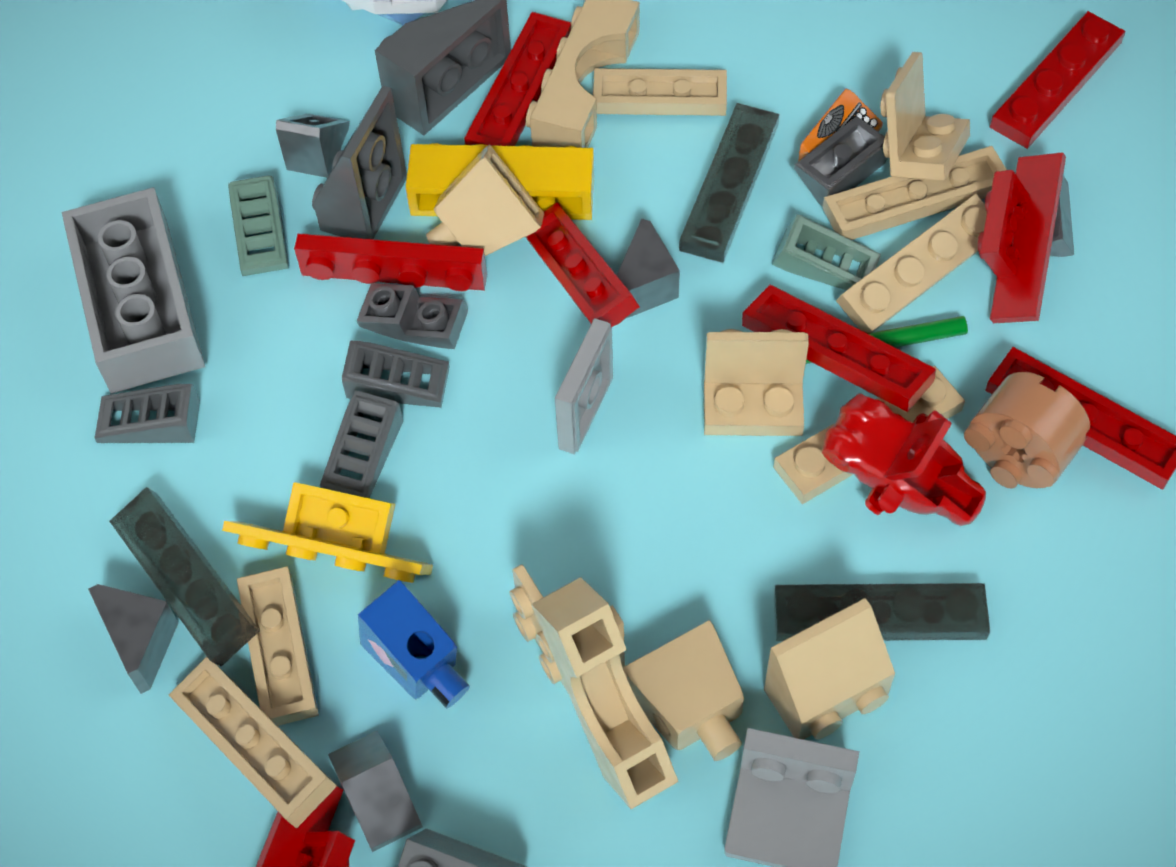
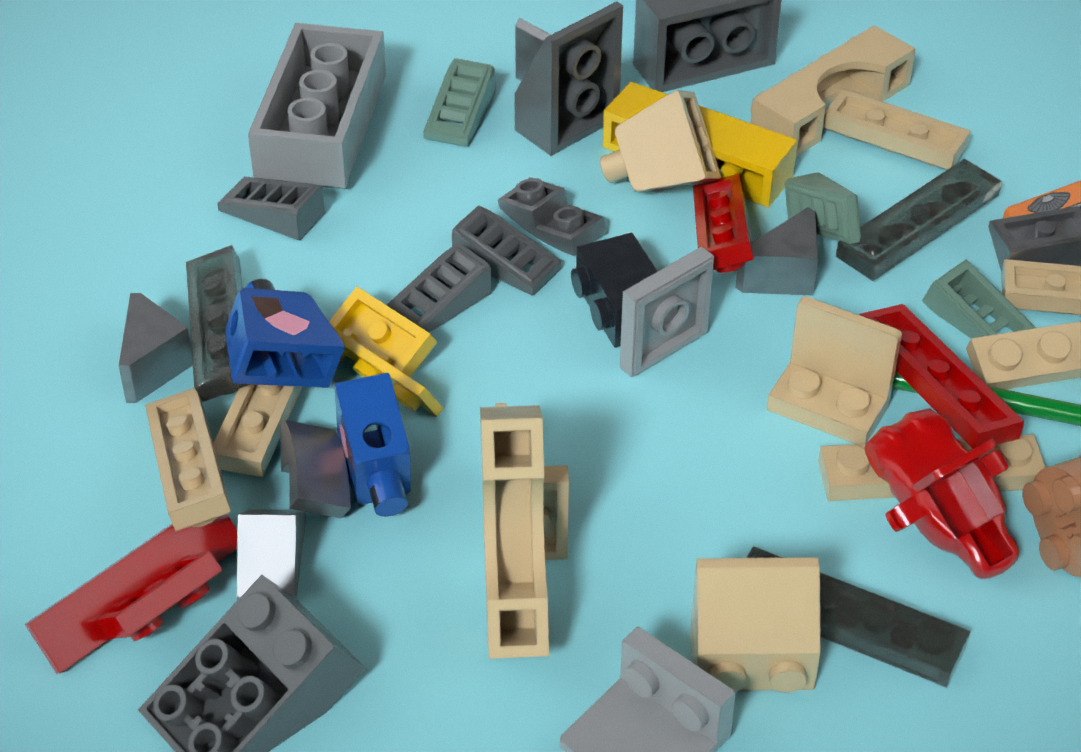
camera: 25 degrees right, 15 degrees down
(264, 578) = (280, 339): none -> blue torso
(369, 687) = (315, 469): none -> flat silver slope
(391, 262) = (541, 157): red plate -> none
(518, 82) = (736, 91): red plate -> none
(519, 370) = (603, 274): none -> black brick
(637, 200) = (833, 206): none -> sand green slope
(690, 691) = (607, 589): tan torso -> none

